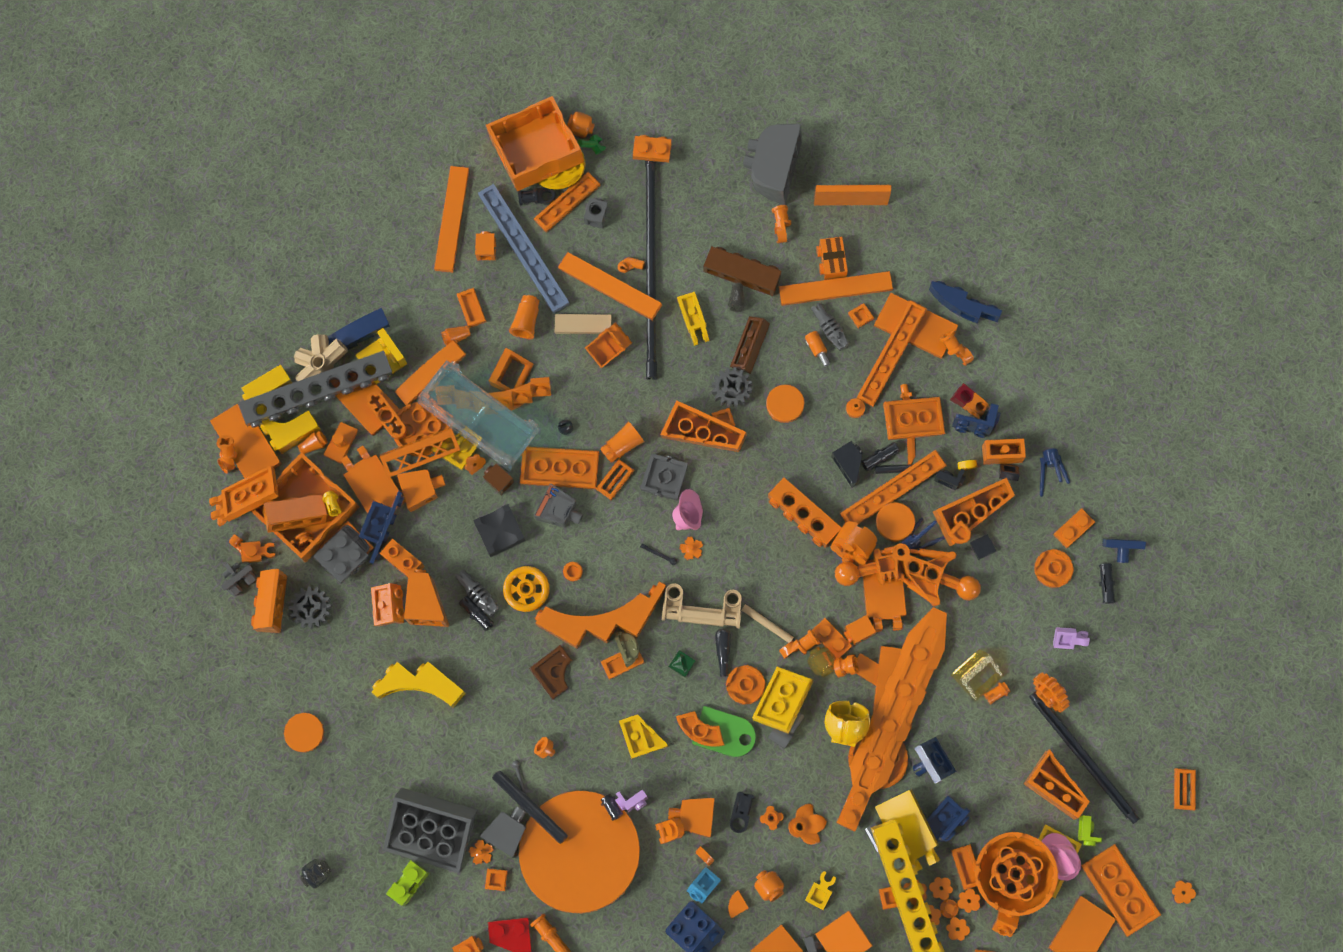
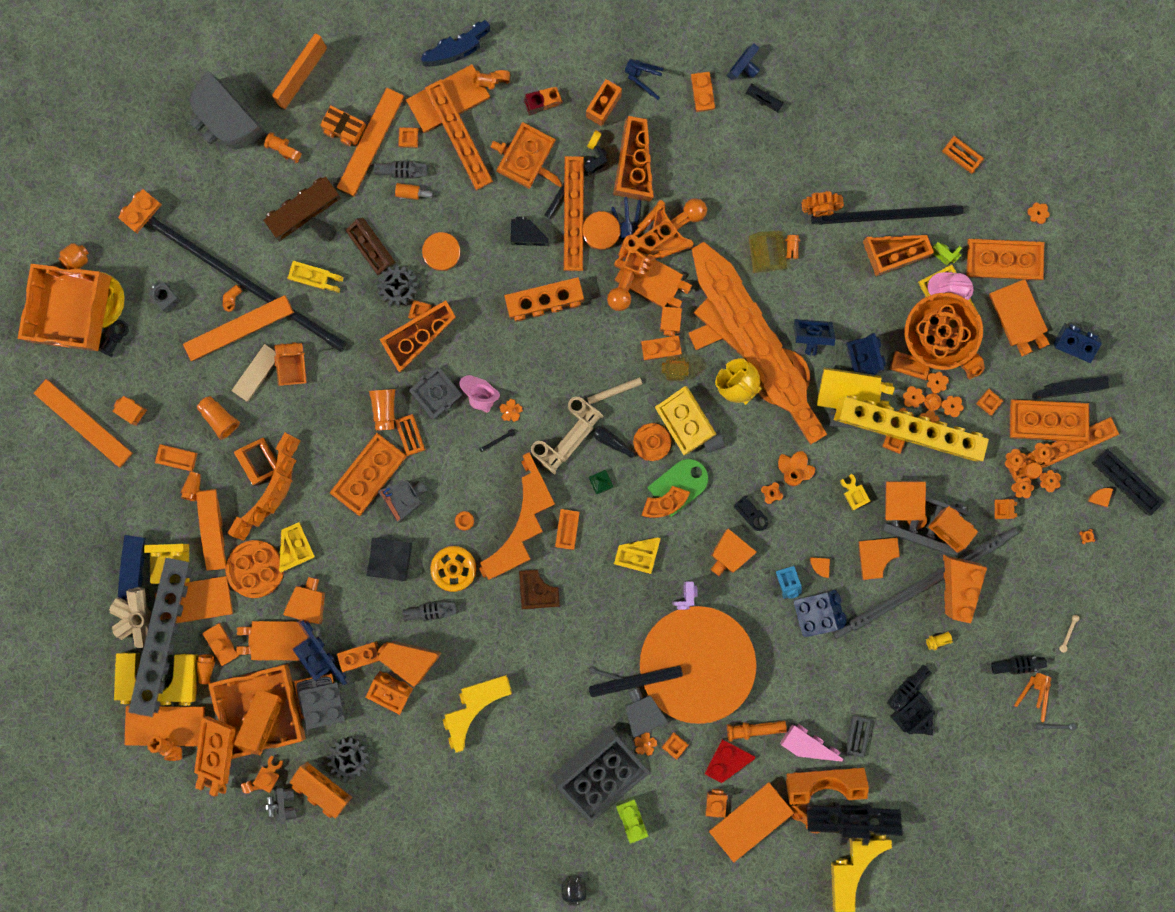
camera: 60 degrees left, 10 degrees up
(303, 539) = (285, 727): orange bush -> none
(303, 732) = (450, 829): orange tile -> none
(330, 499) = (267, 684): yellow pin -> none
(374, 408) = (210, 597): orange beam -> none
(416, 445) = (269, 579): orange fence -> none
(474, 463) = (316, 543): orange plant -> none
(476, 613) = (446, 623): black pin -> none
(477, 415) = (279, 514): clear light blue windscreen -> none
(498, 478) = (343, 532): reddish brown brick -> none
(523, 248) = (153, 379): sand blue plate -> none
(544, 748) = (595, 639): orange tile -> none
(567, 202) = (136, 314): orange tile -> none
(567, 429) = (340, 447): black hinge -> none
(592, 143) = (99, 258): green bar -> none
(611, 807) = (680, 615): black pin -> none
(628, 647) = (558, 516): olive tile -> none
(670, 830) = (729, 580): orange plate -> none
(704, 856) = (766, 566): orange tile -> none
(769, 885) = (824, 530): orange head -> none
(803, 644) = (652, 373): orange connector -> none
(846, 666) = (693, 349): orange wheel -> none
(854, 543) = (598, 276): orange brick -> none
(855, 408) = (482, 200): orange tile -> none
(880, 456) = (538, 204): black pin -> none
(959, 533) = (648, 185): orange tile -> none
(978, 427) = (572, 107): dark blue bracket -> none
(983, 547) = (669, 175): black tile -> none
(1009, 471) = (622, 110): black tile -> none
(1048, 569) = (719, 136): orange tile -> none
(1068, 637) = (787, 159): lavender plate -> none

